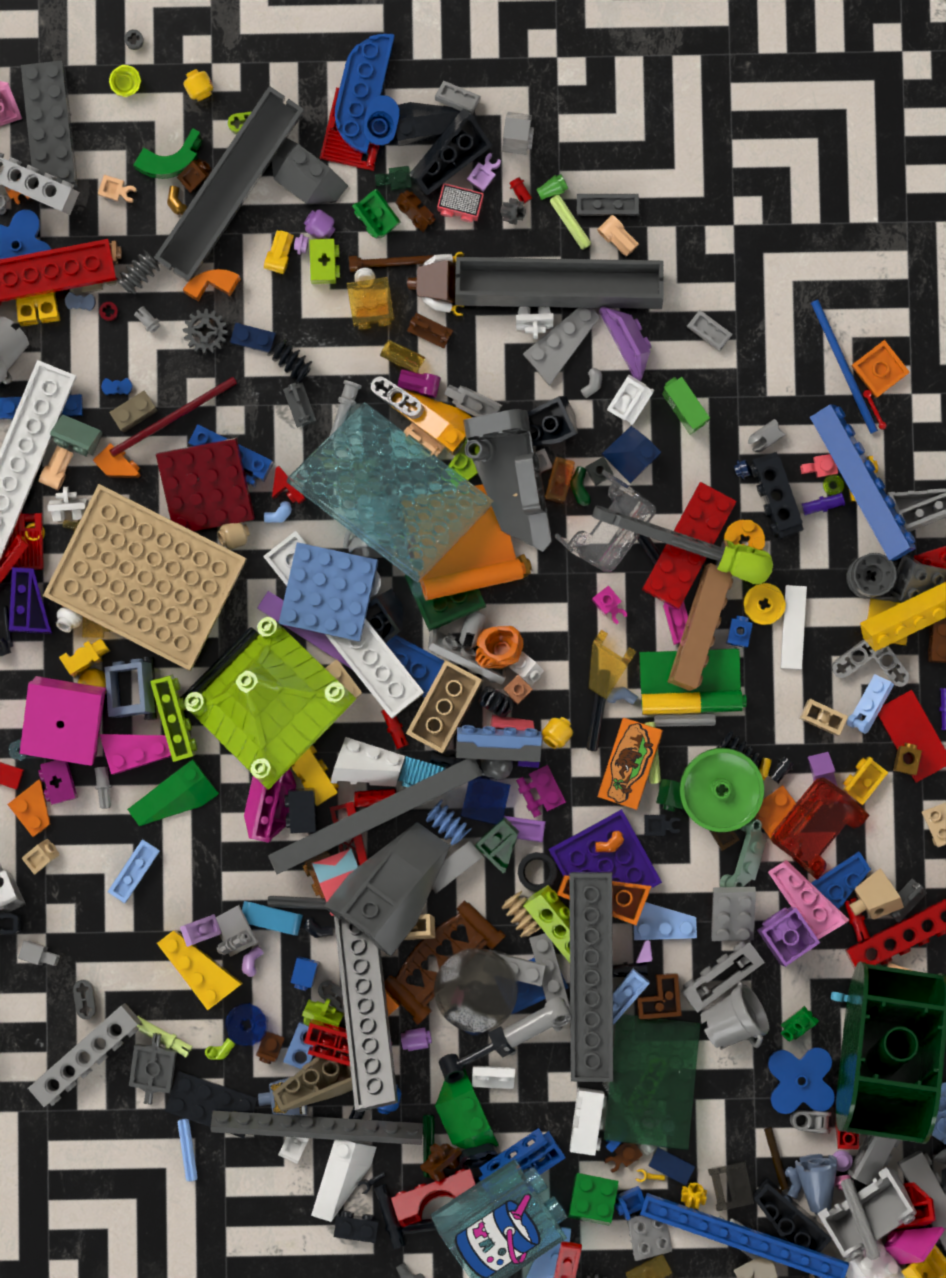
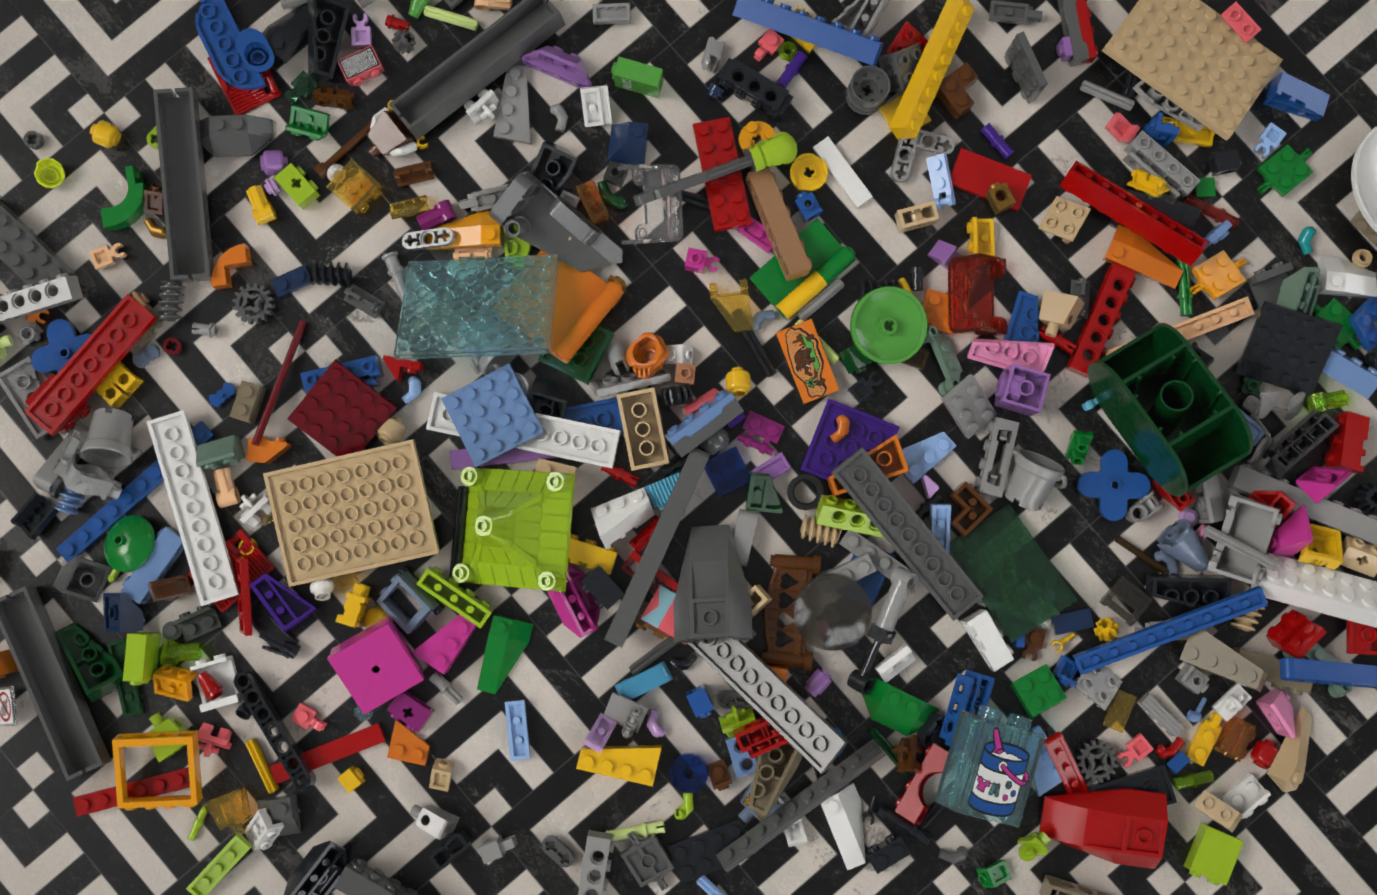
camera: 35 degrees left, 0 degrees up
(447, 823) = (713, 510): medium blue piece -> none

